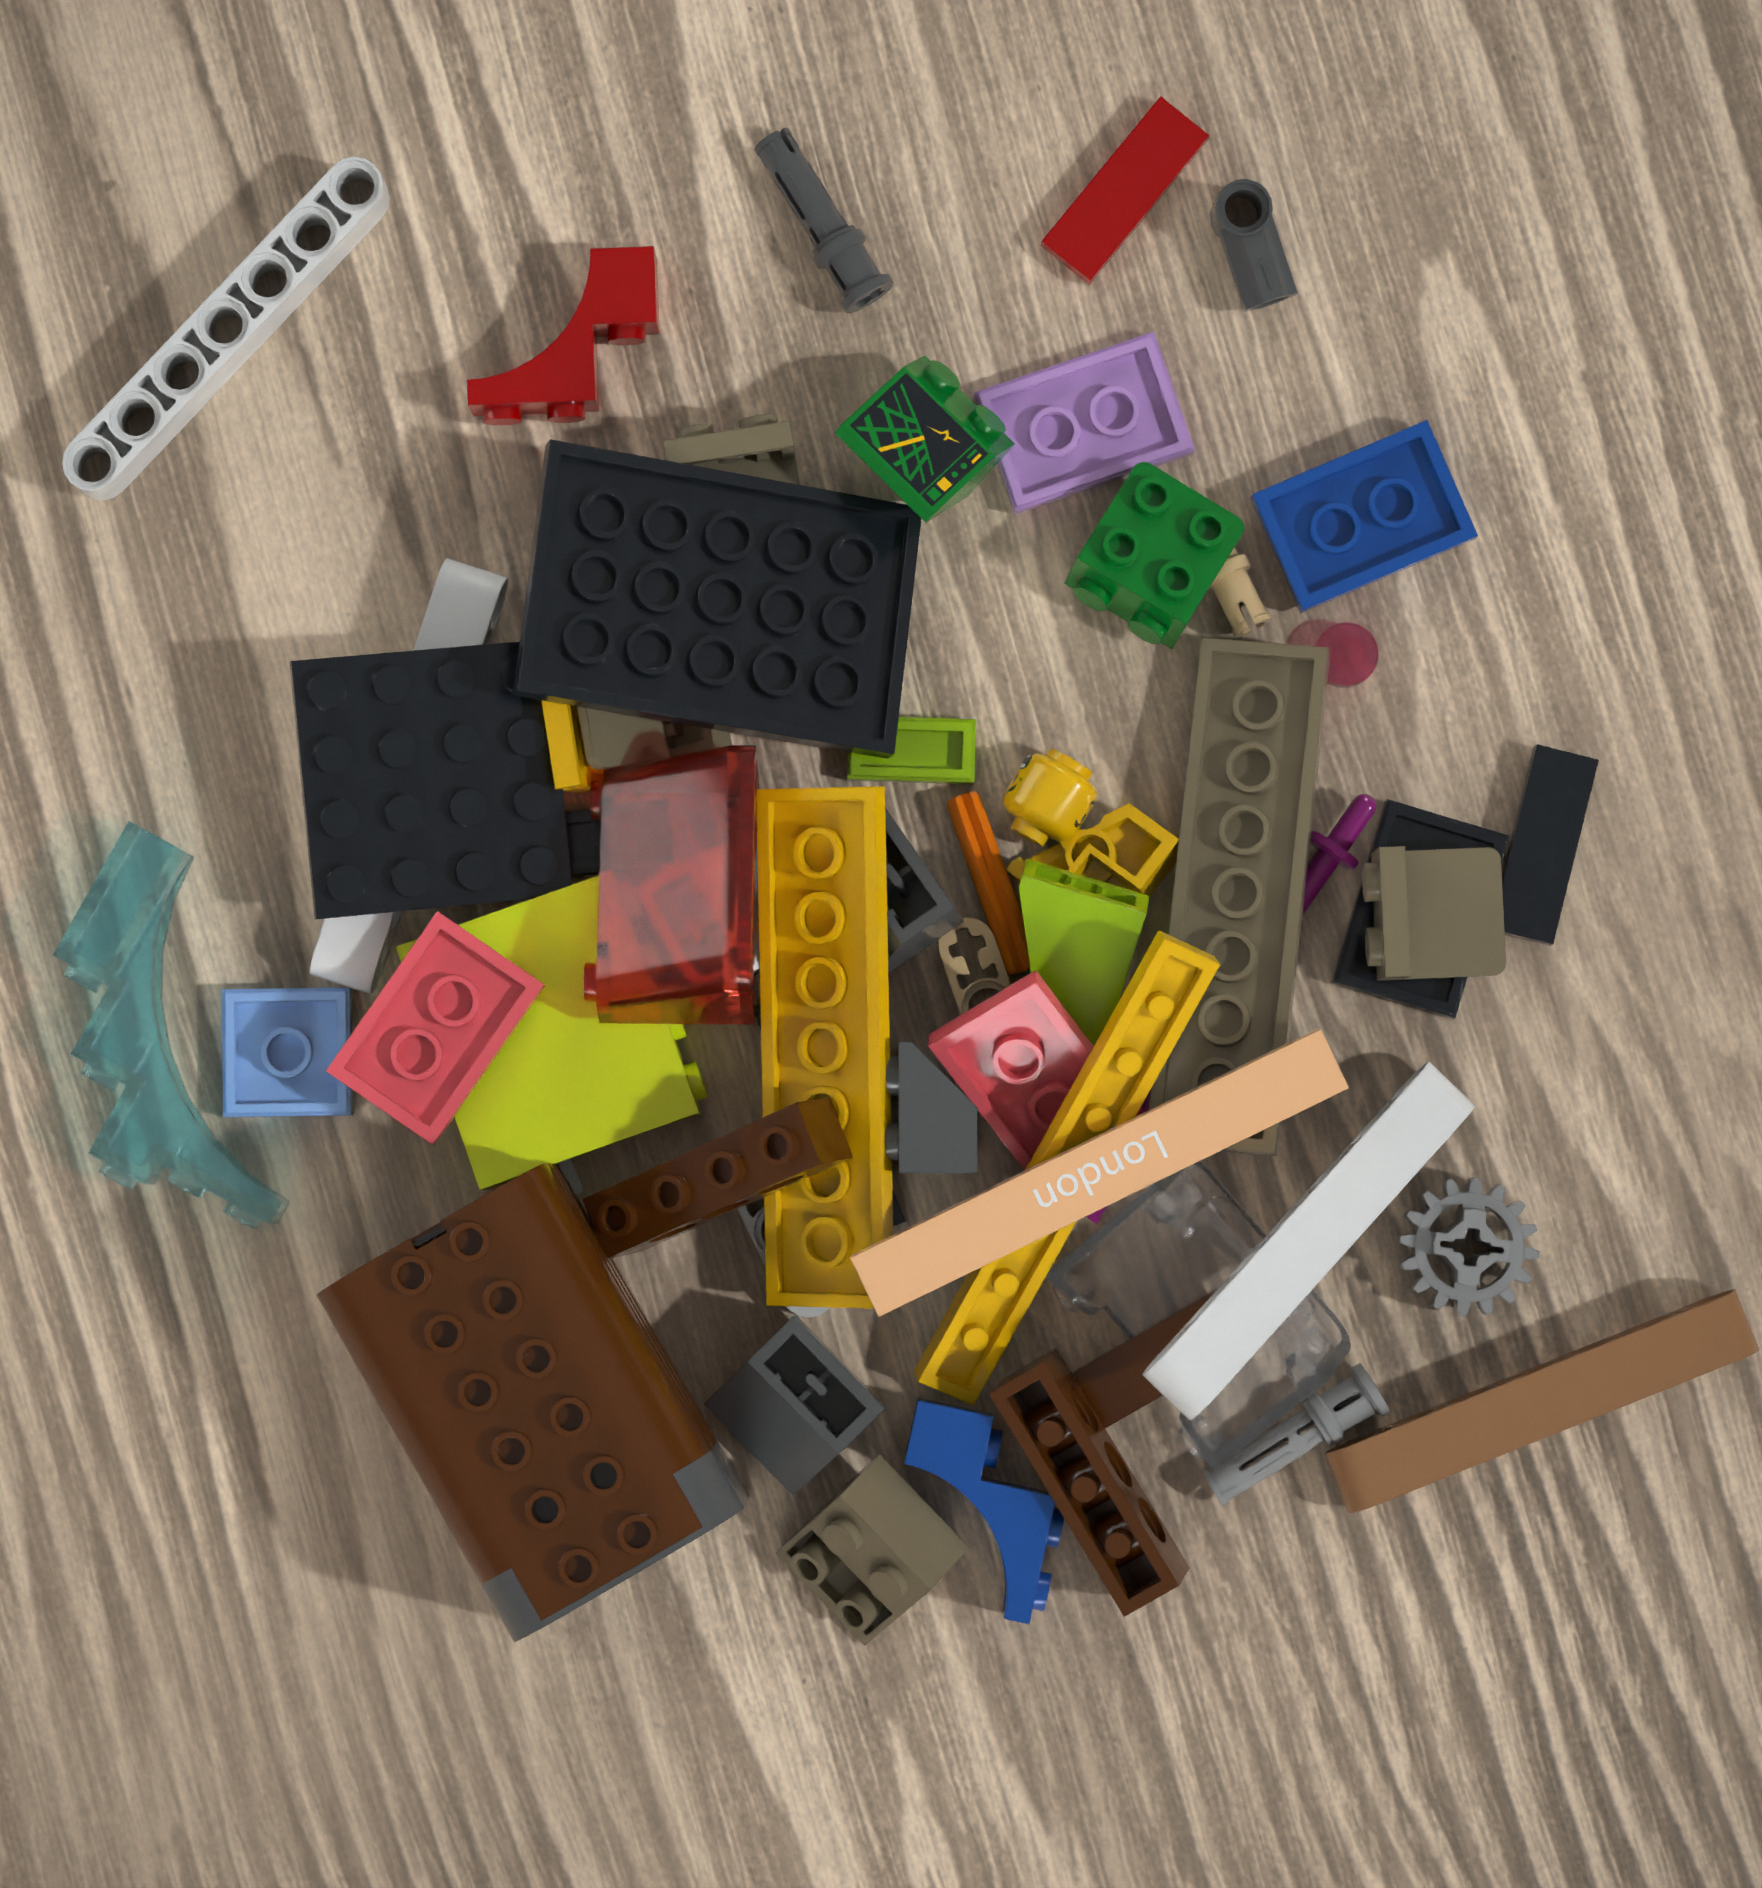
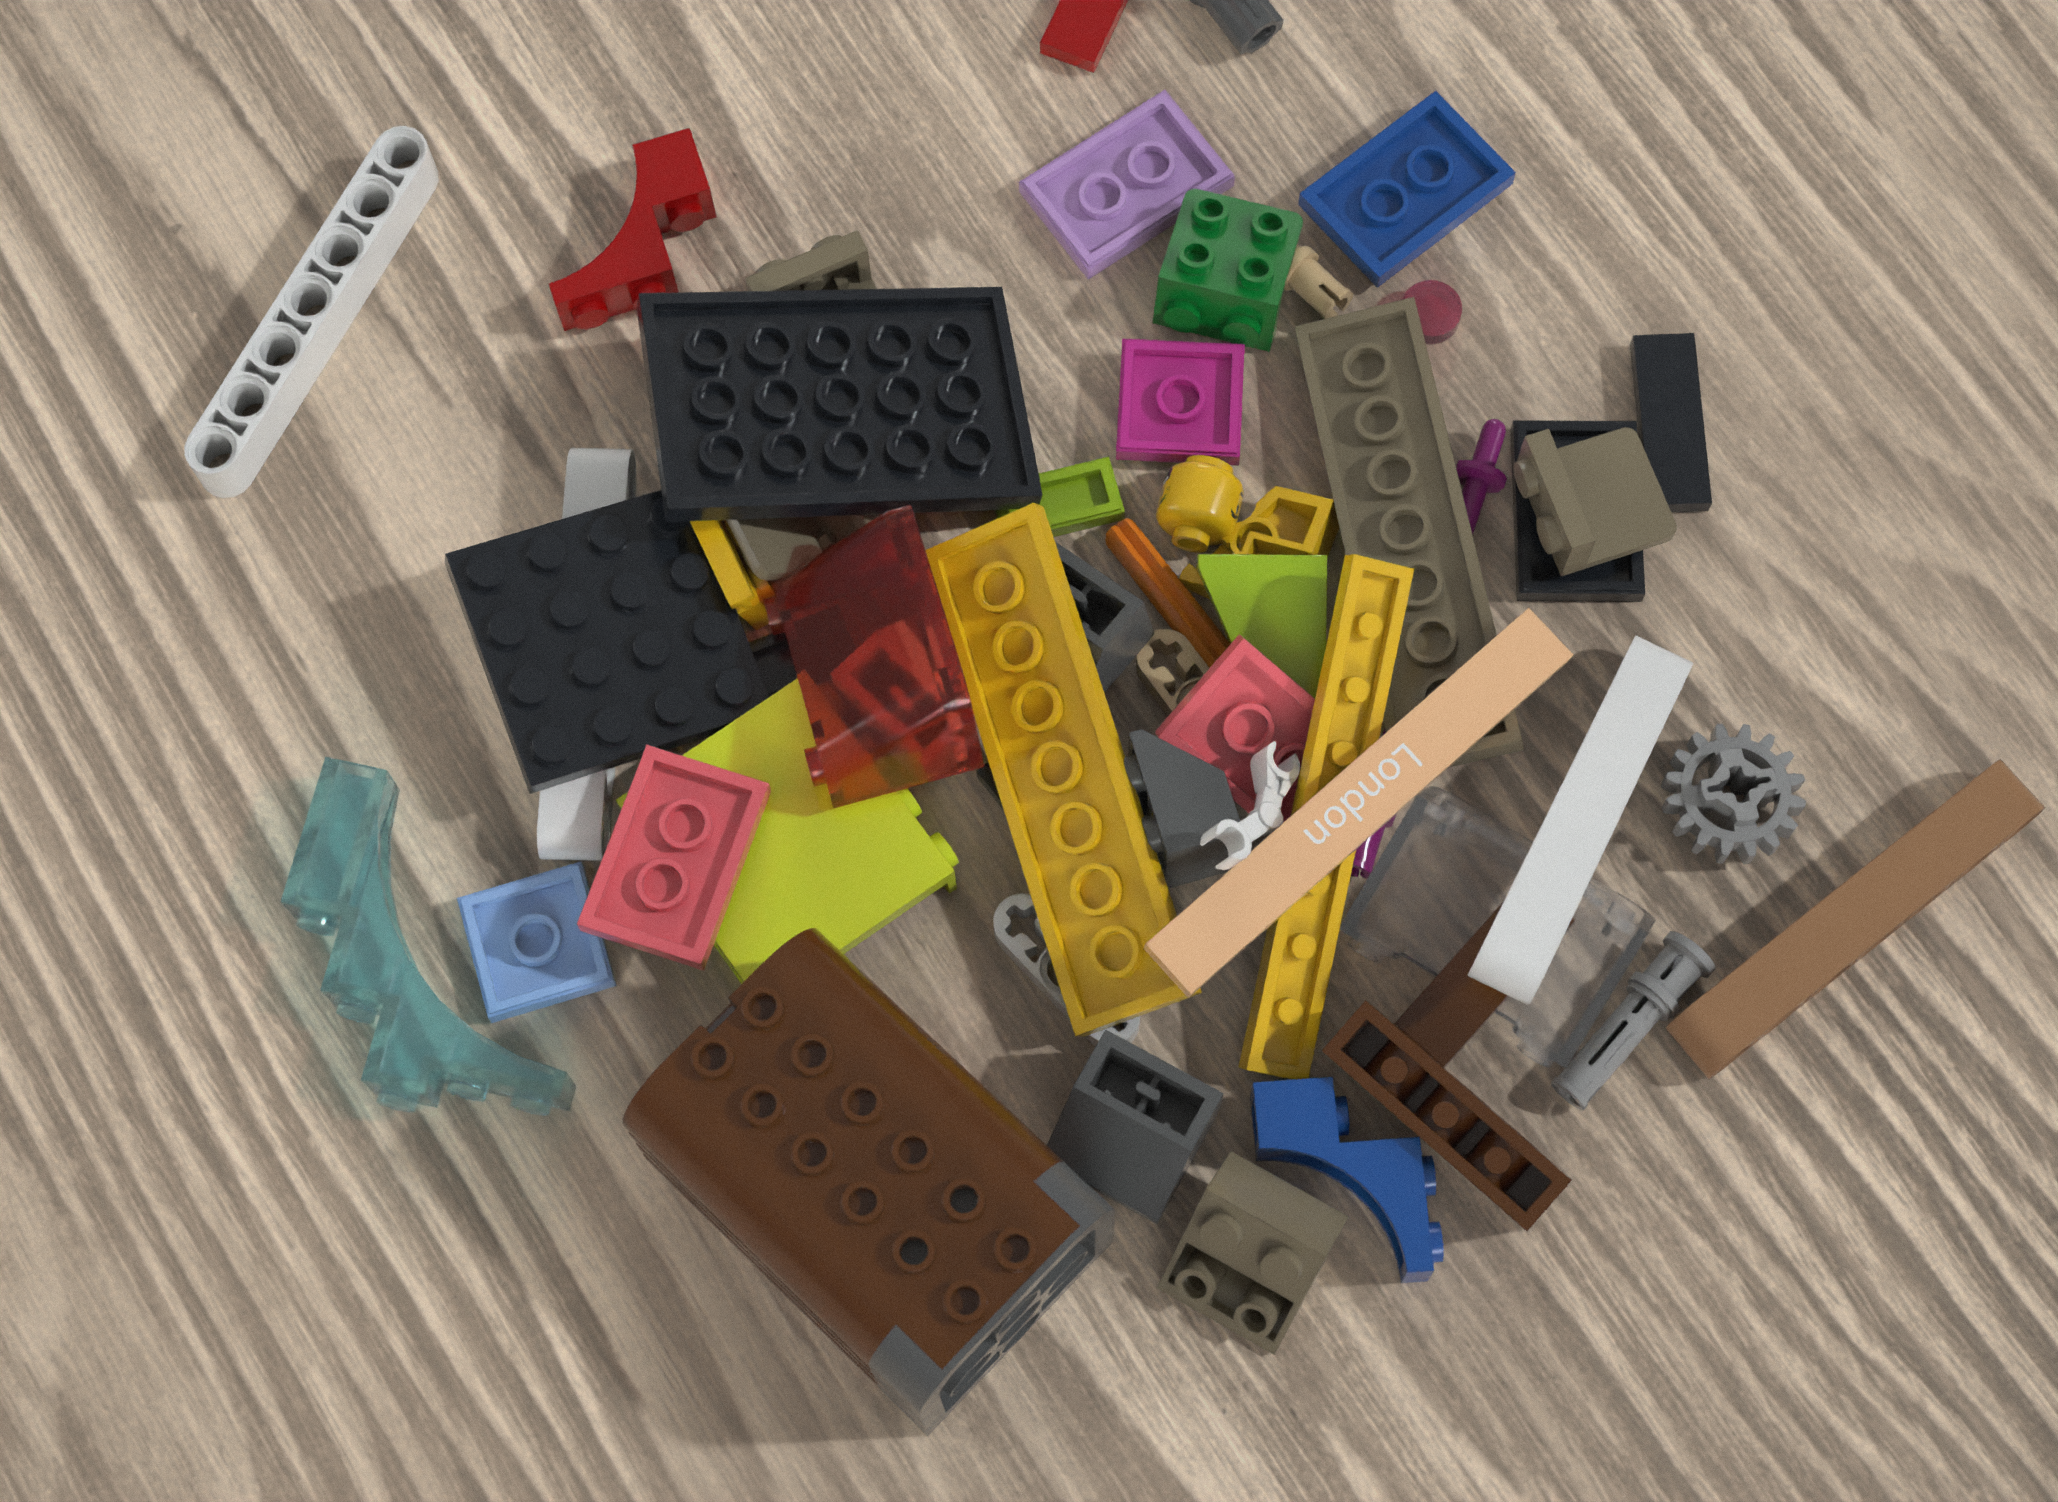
camera: 15 degrees left, 15 degrees down
(718, 1177) = (994, 916): reddish brown brick -> none
(836, 244) = (856, 93): dark grey pin -> none
(926, 437) = (989, 215): slope -> none
(1003, 1162) = (1270, 785): none -> white piece
(1064, 682) = (1180, 401): none -> dark pink plate

